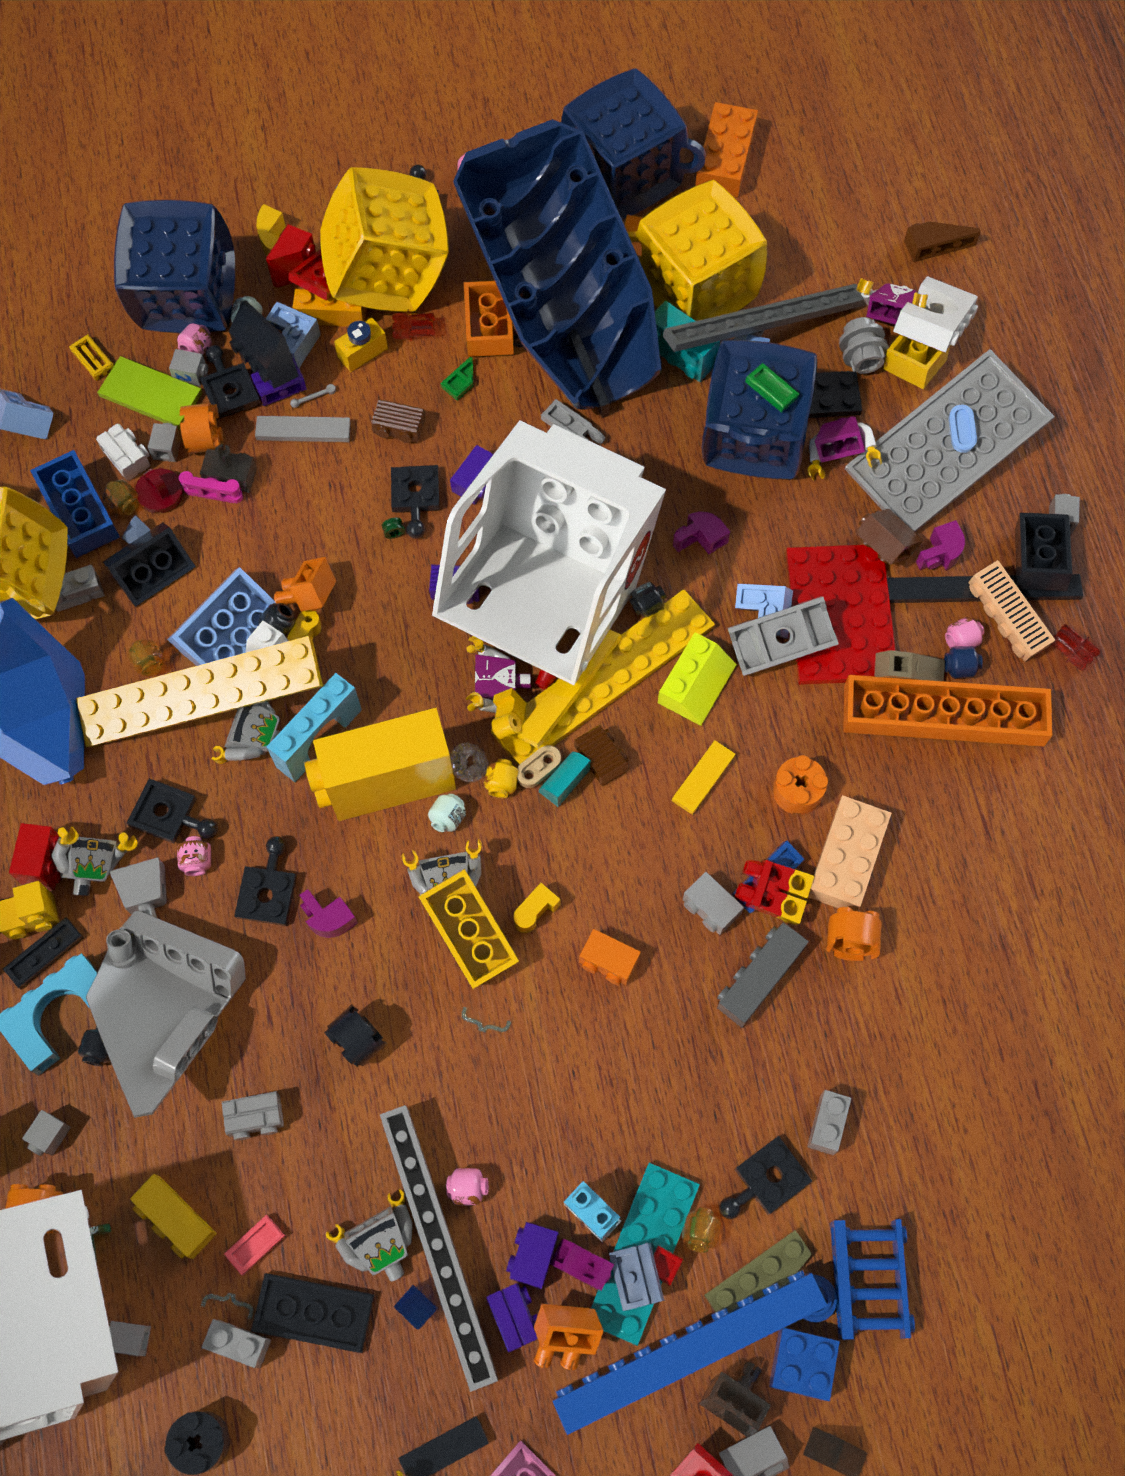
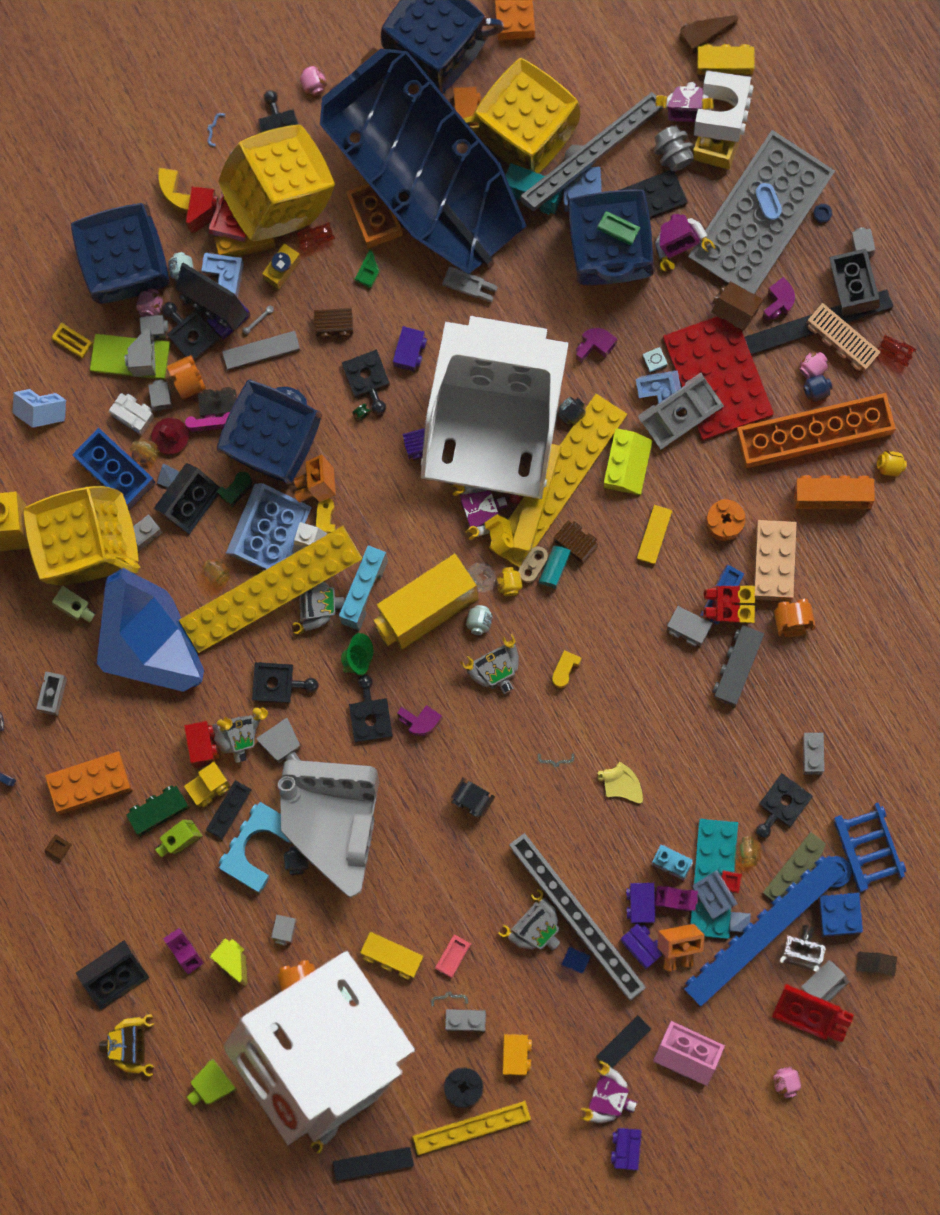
camera: 10 degrees left, 10 degrees up
(159, 386) = (141, 355): none -> light grey slope
(194, 856) = (309, 708): bright pink head -> none
(211, 570) = (237, 489): none -> dark green leg
(252, 1115) = (420, 872): light grey brick -> none
(267, 505) = (270, 430): none -> dark blue piece
(279, 616) = (305, 513): black head -> none
(279, 808) = (358, 655): none -> green piece
(287, 1418) = (515, 1054): none -> light orange brick
(313, 1313) = (508, 986): black tile -> none
(466, 1186) = (582, 873): bright pink head -> none
(468, 928) = (525, 698): yellow brick -> none
(560, 1080) = (622, 783): none -> light yellow arm
(609, 958) = (628, 687): orange brick -> none
(659, 1326) = (739, 921): none -> sand blue slope
(768, 572) = (655, 359): none -> light aqua tile
(908, 666) = (780, 406): dark tan slope -> none
(951, 792) = (834, 492): none -> orange brick
(954, 271) = (725, 59): none -> yellow brick
(1022, 469) = (822, 213): none -> dark blue tile
(1033, 779) = (891, 463): none -> yellow head

